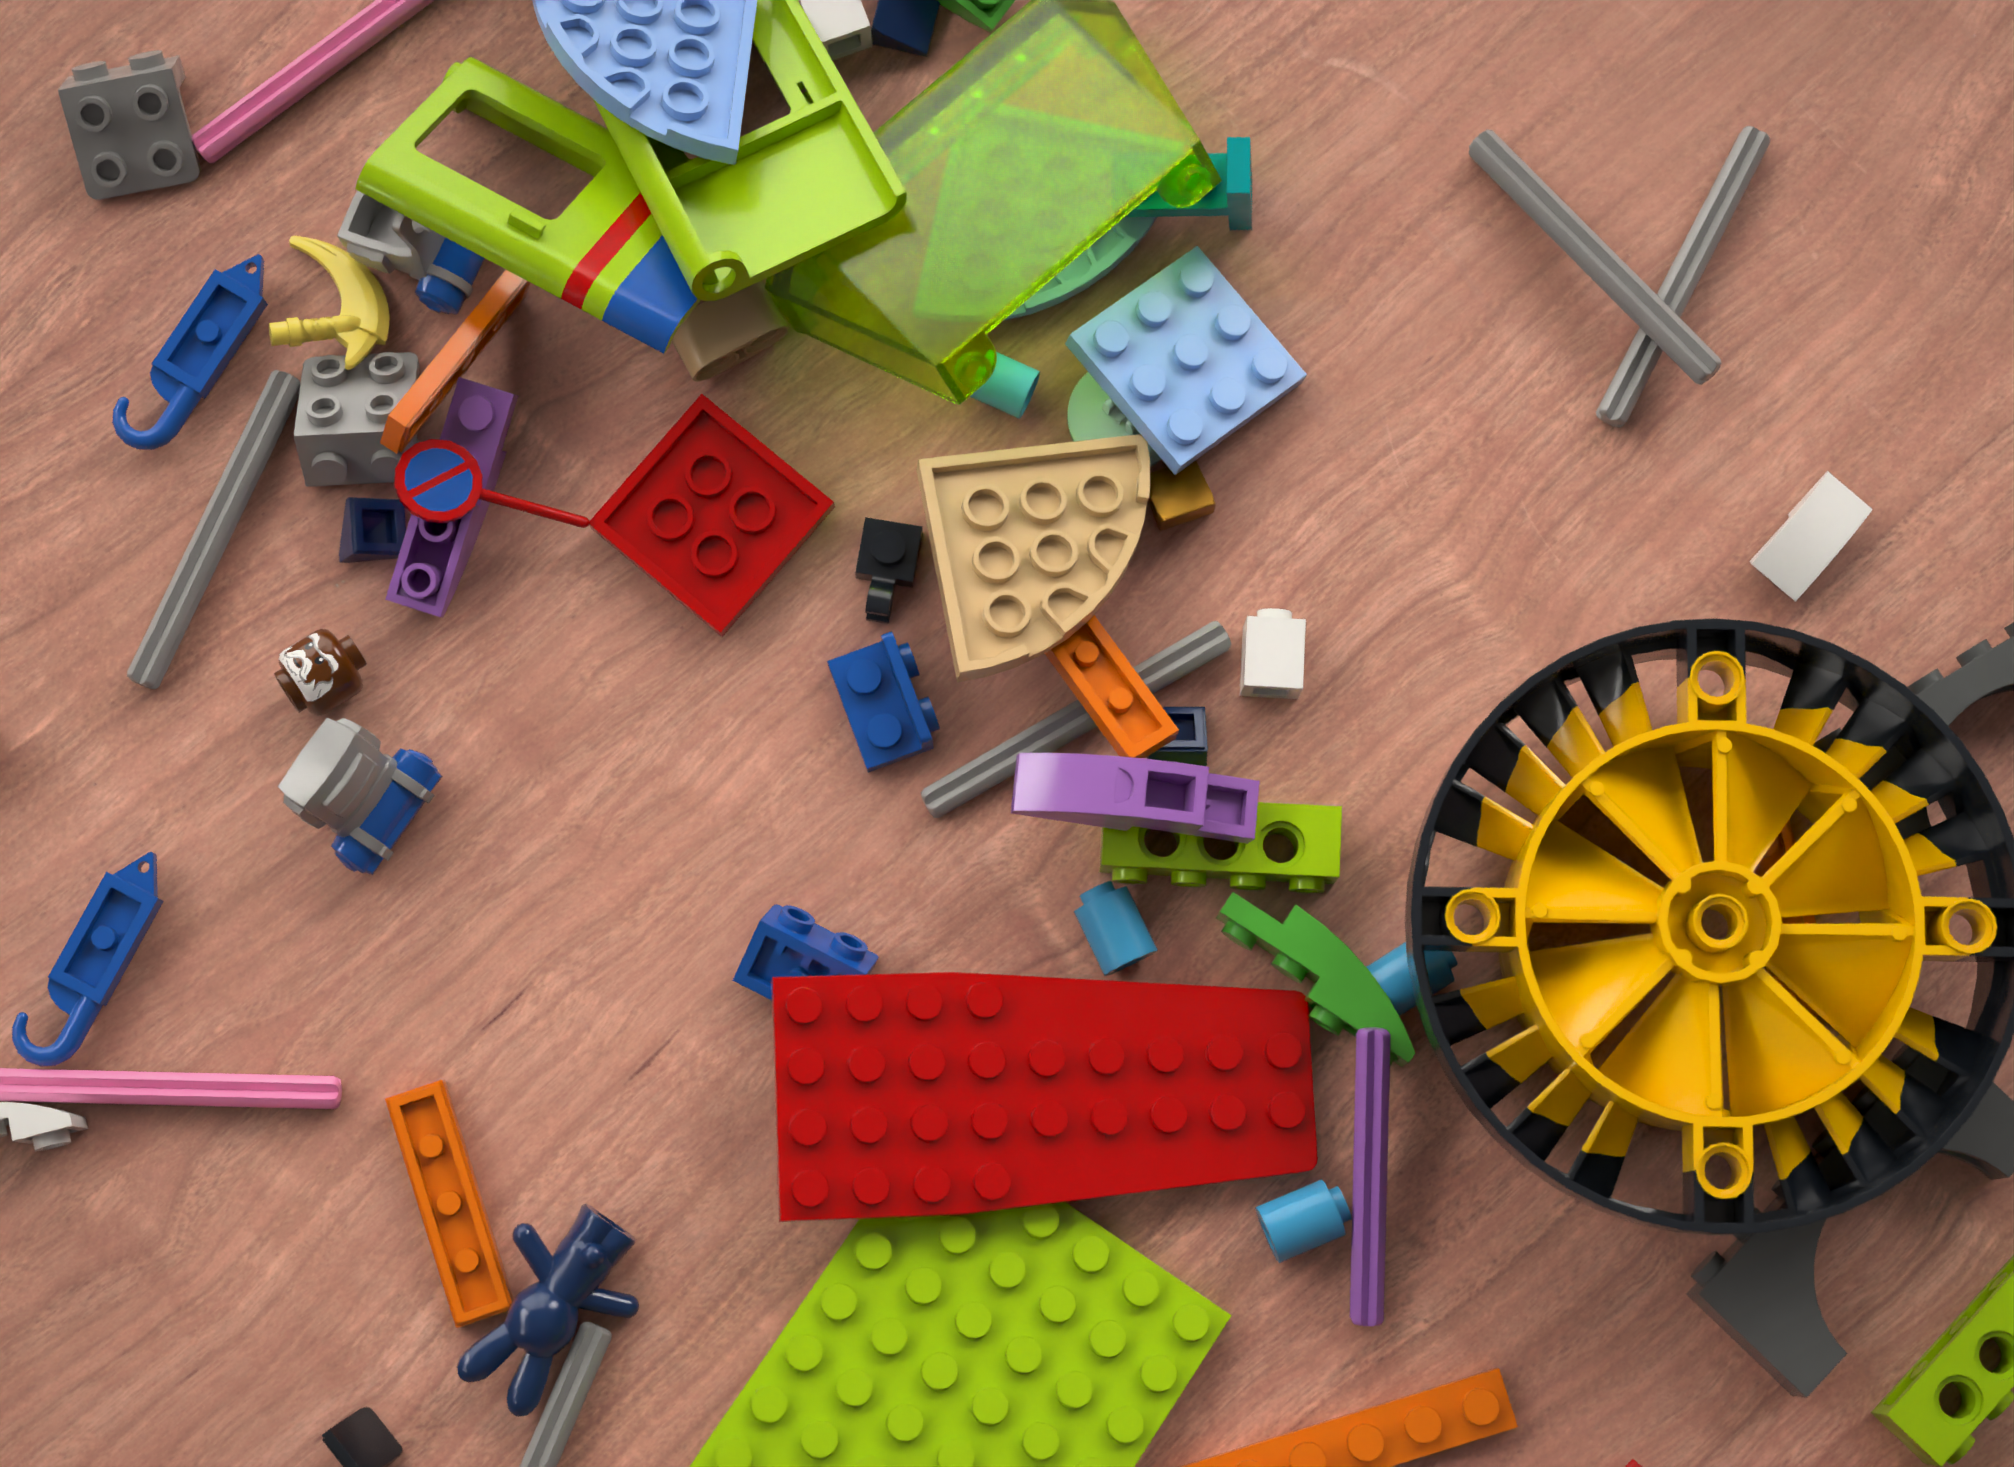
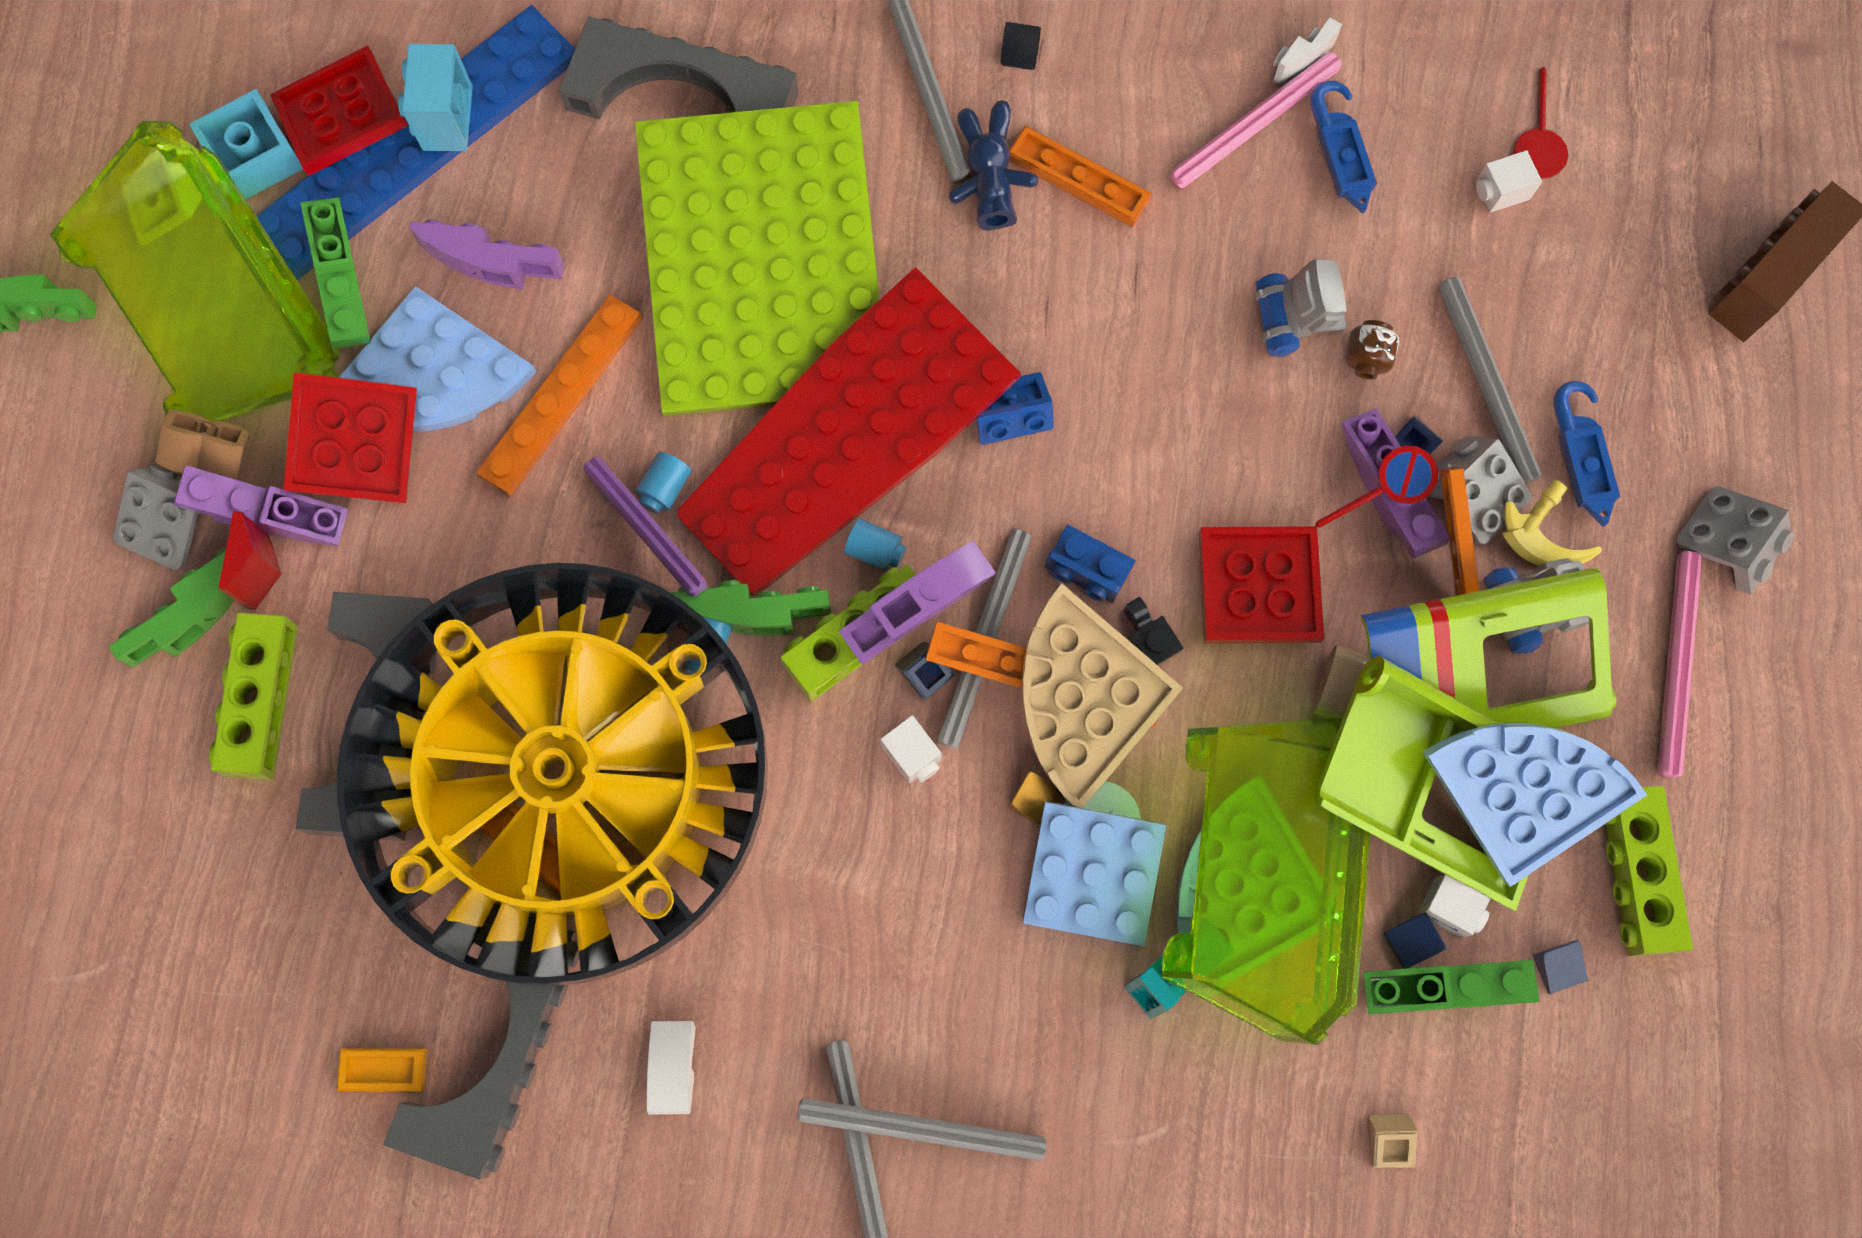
camera: 140 degrees right, 5 degrees down
(1009, 386) = (1176, 780): beam -> none

